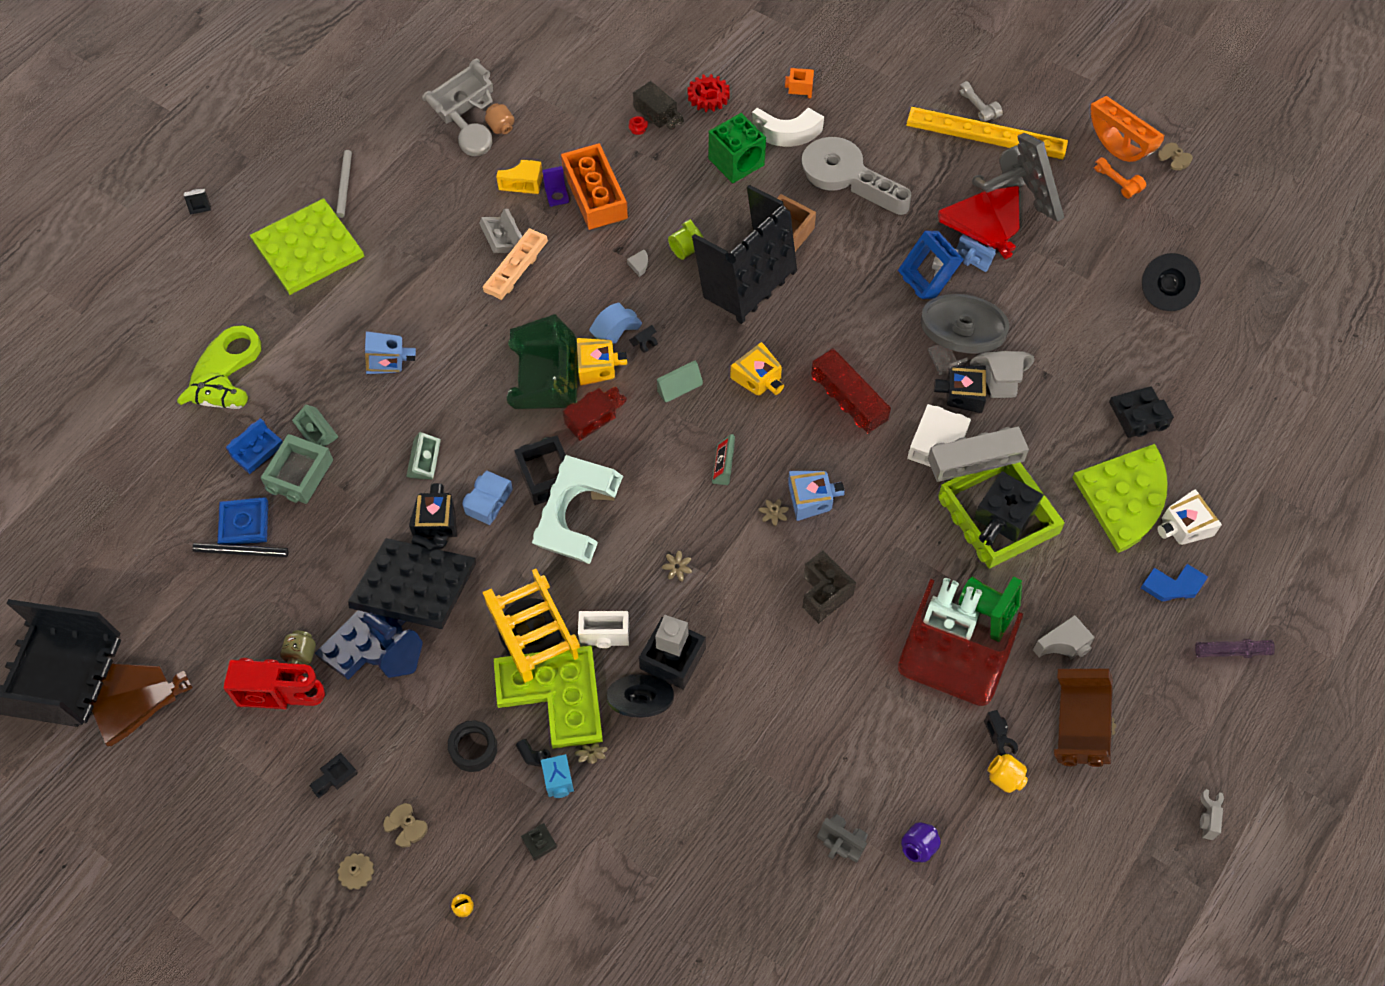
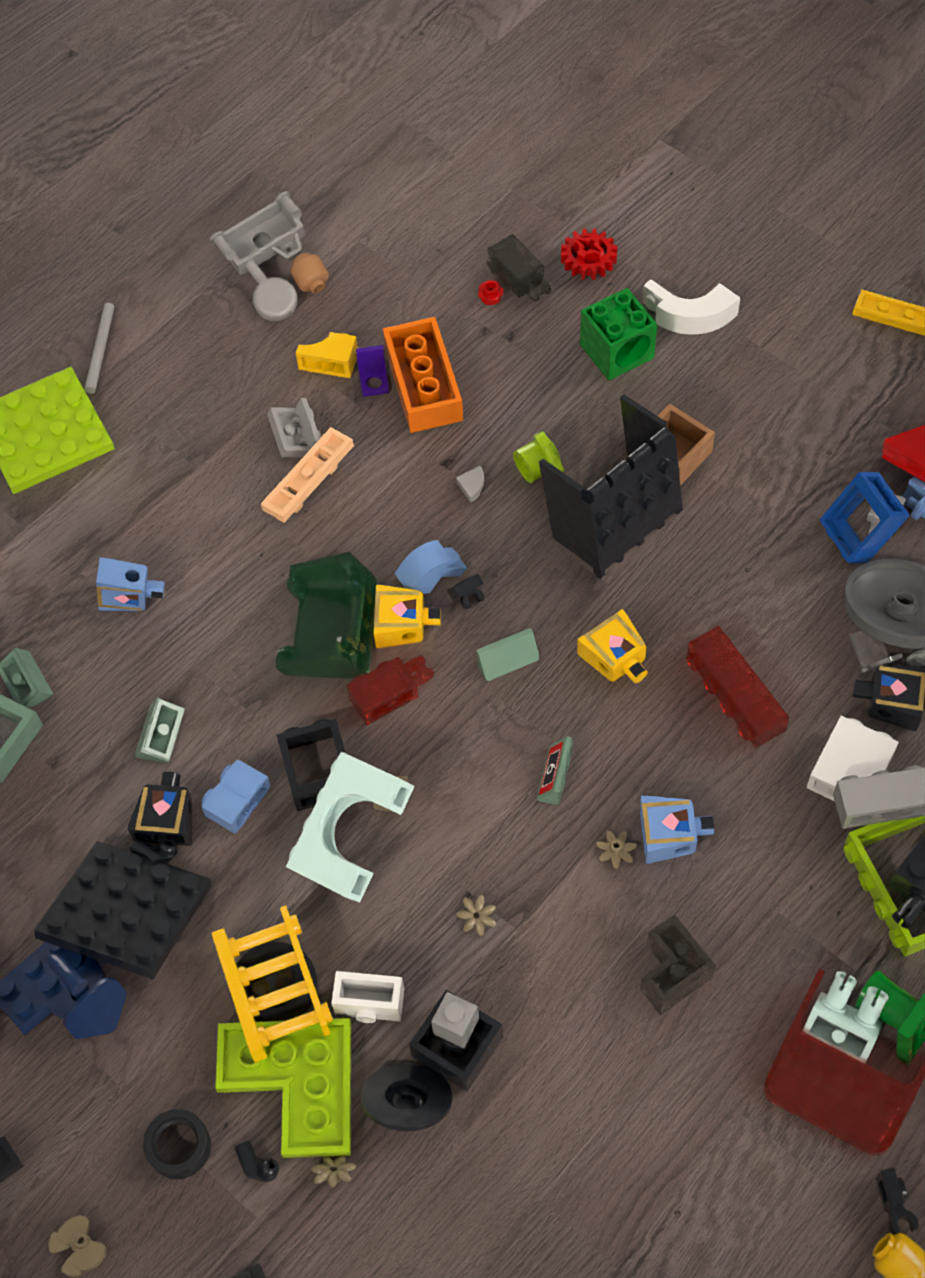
camera: 10 degrees right, 0 degrees up
(557, 776) = (284, 1199): dark azure brick -> none
(800, 81) = (713, 246): orange brick -> none
(838, 163) = (753, 363): light grey beam -> none

